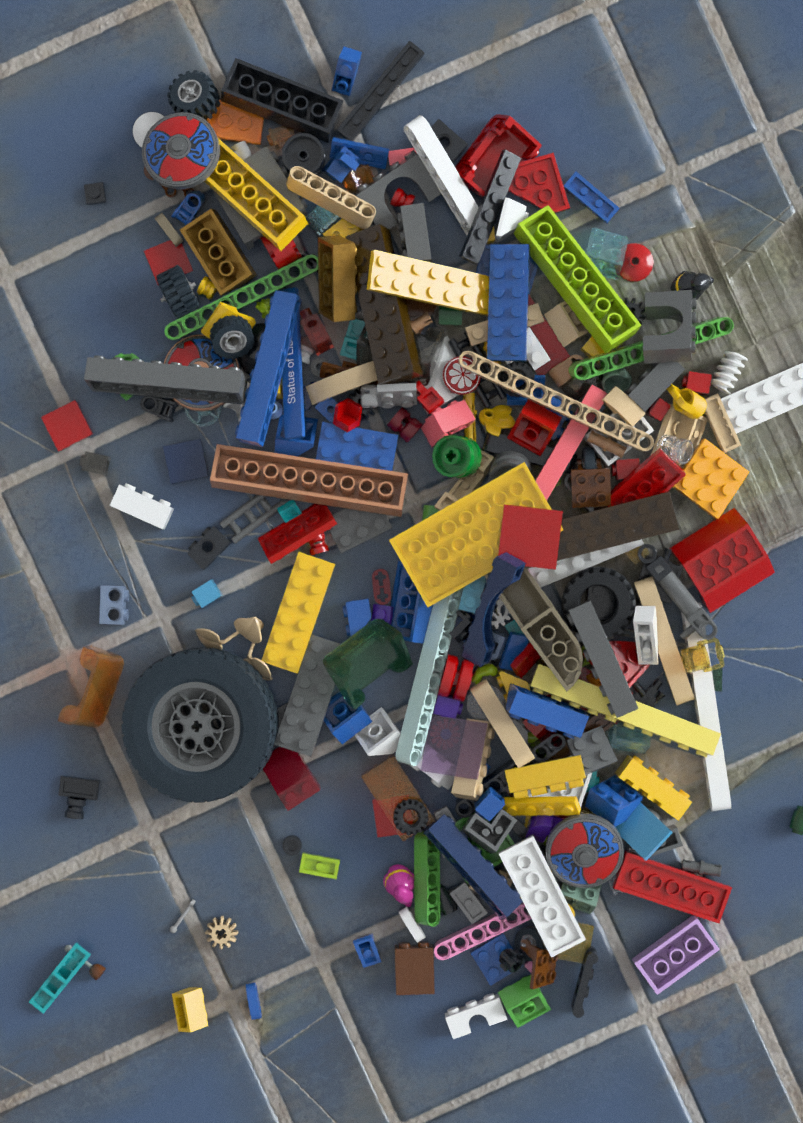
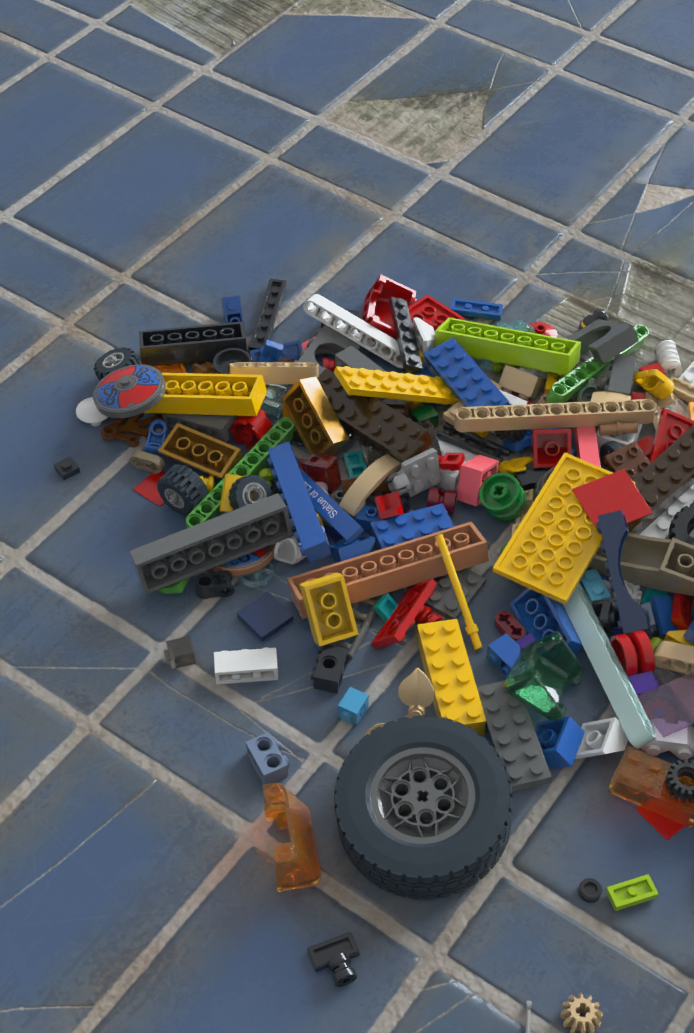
camera: 30 degrees left, 40 degrees down
(67, 425) = (135, 639): red tile -> none
(228, 503) = (328, 609): none -> yellow brick
(290, 777) = (544, 823): dark red slope -> none
(346, 573) = (471, 628): none -> yellow bar
(458, 379) = (464, 444): dish -> none

